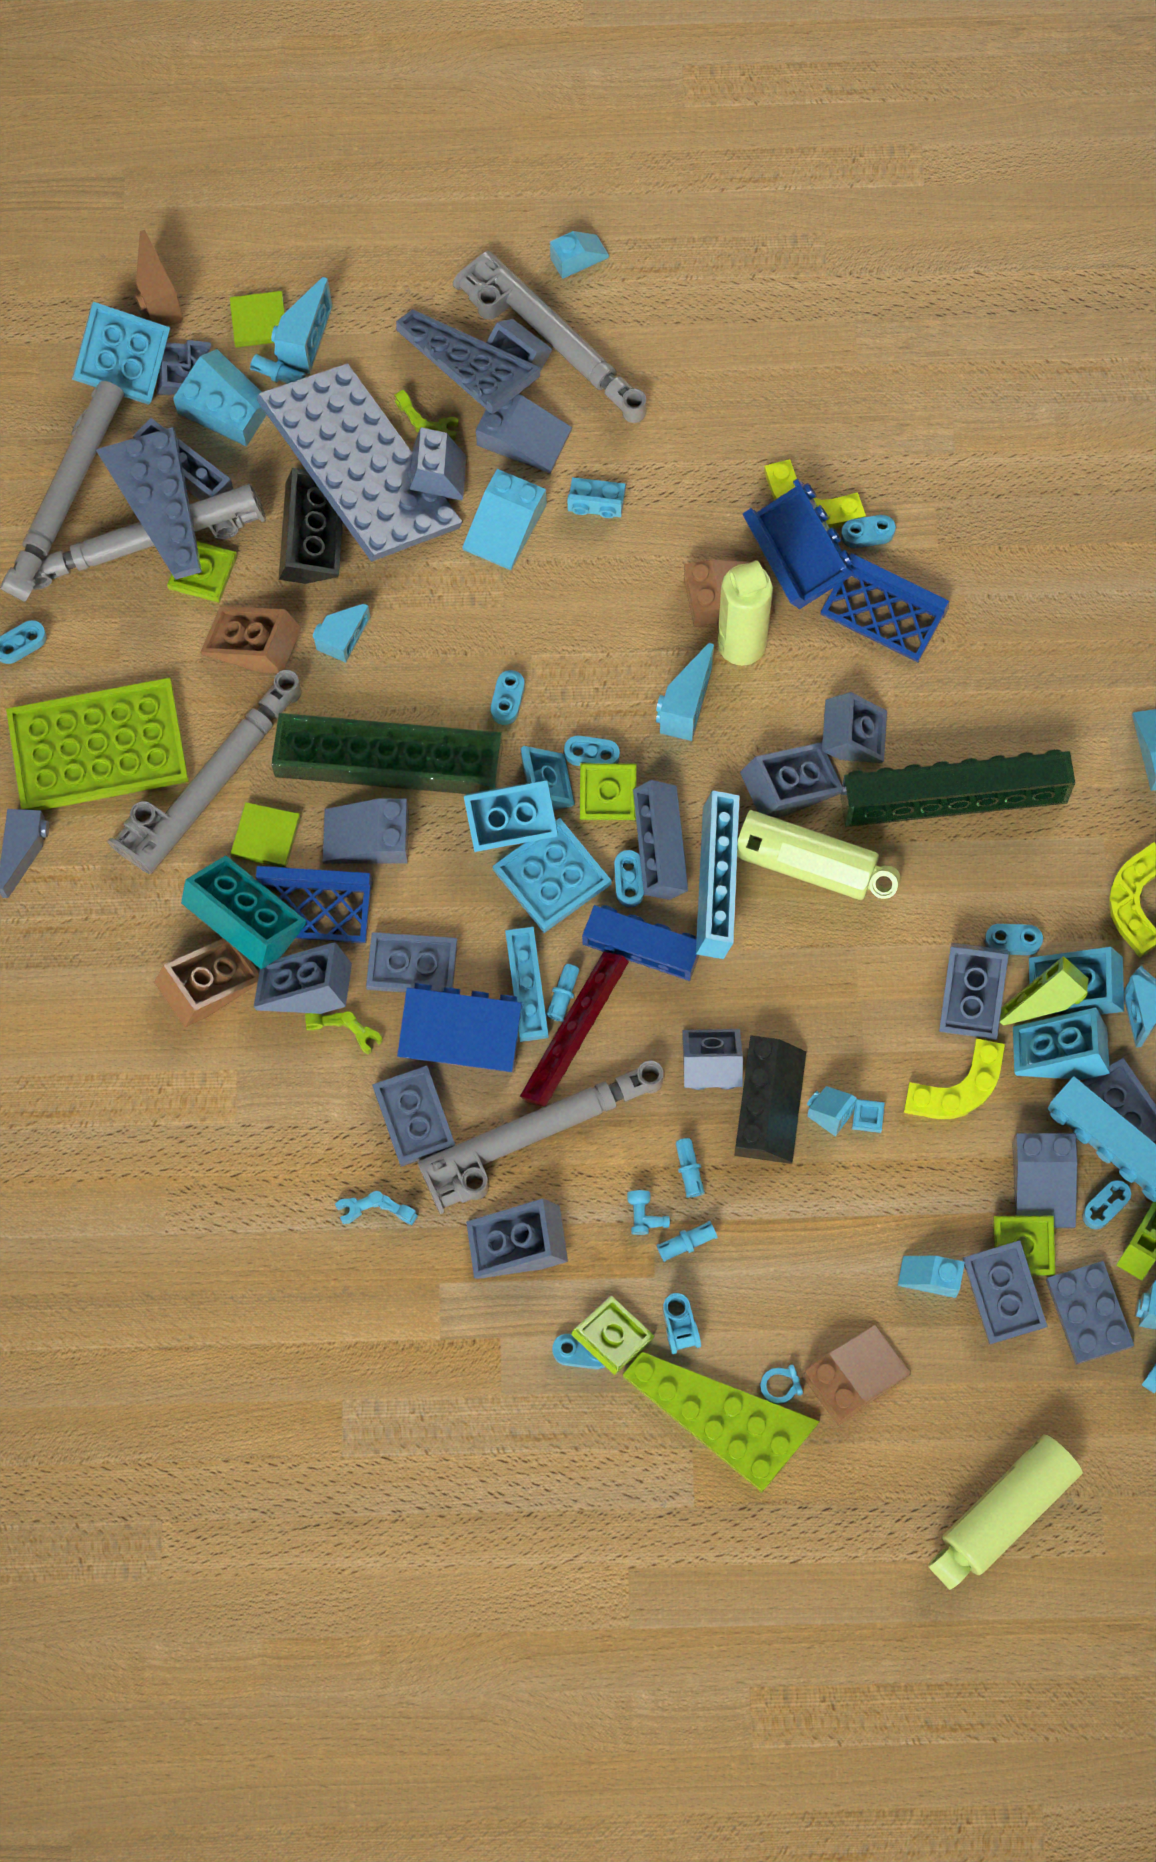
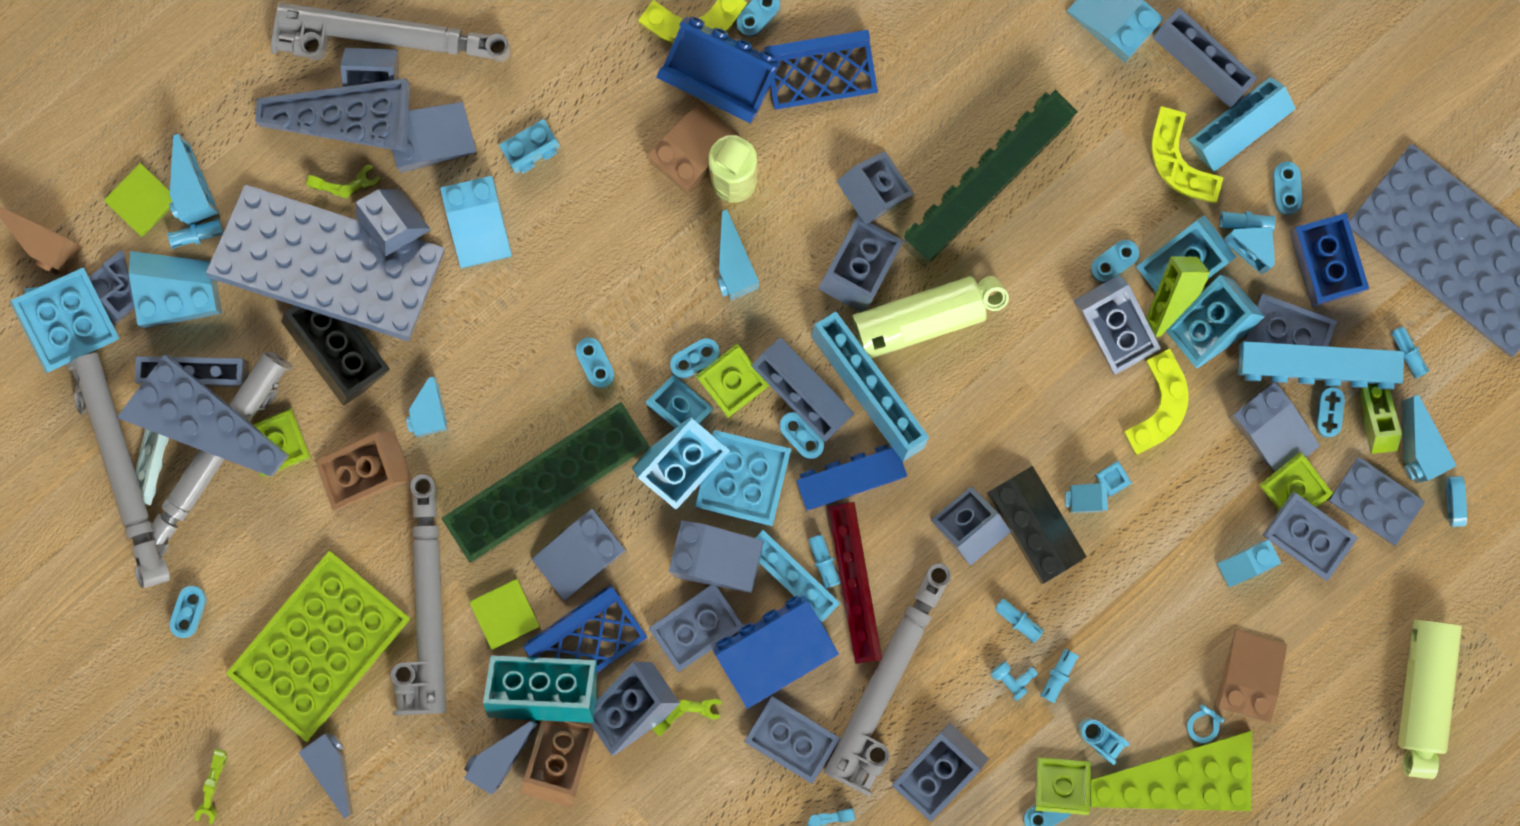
camera: 40 degrees left, 15 degrees up
(91, 510) = (150, 463): none -> light aqua plate
(163, 937) = (494, 763): none -> sand blue slope
(474, 914) = (715, 557): none -> sand blue slope

